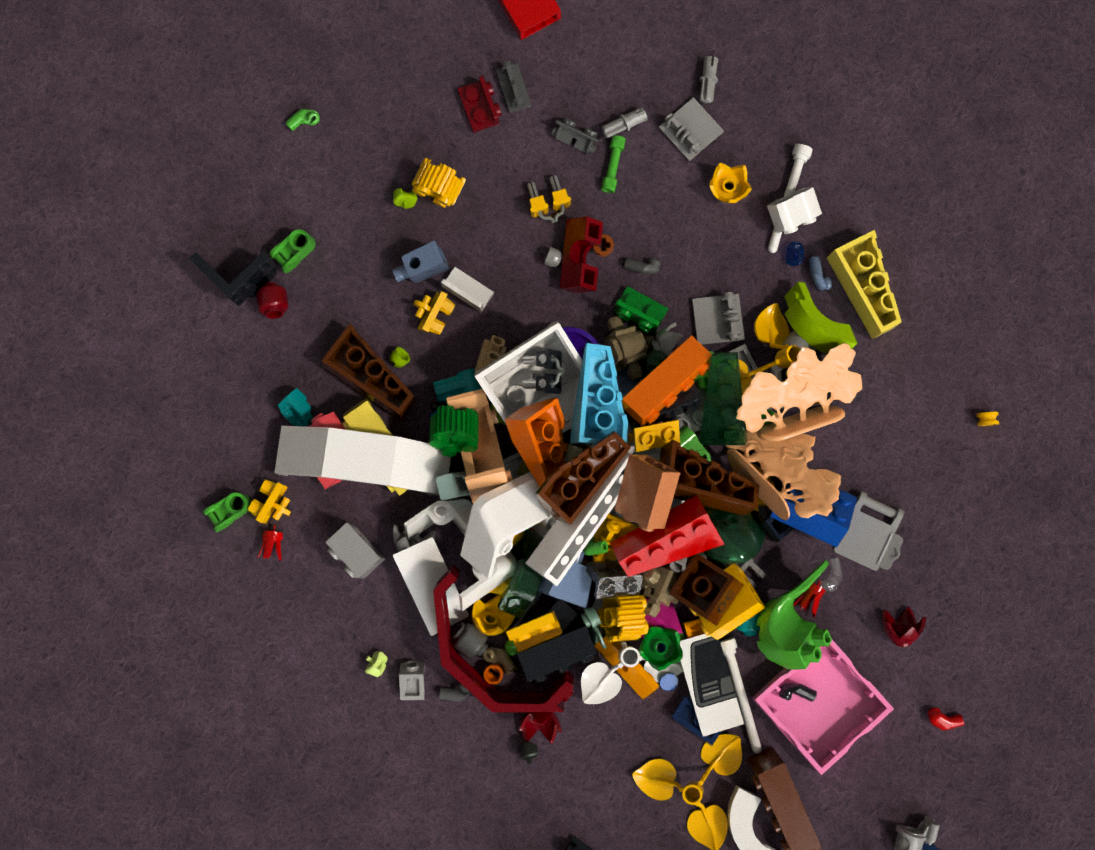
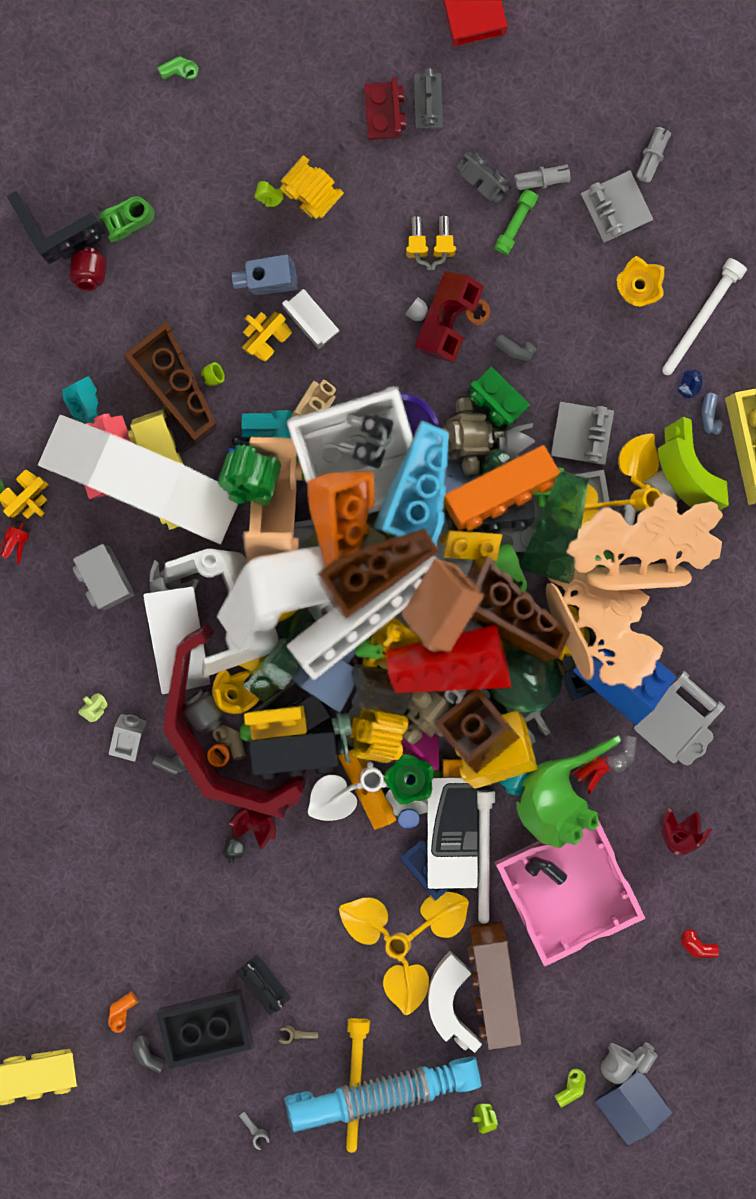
camera: 15 degrees right, 5 degrees up
(452, 485) = (230, 536): light aqua slope -> none
(794, 209) = (704, 333): white brick -> none

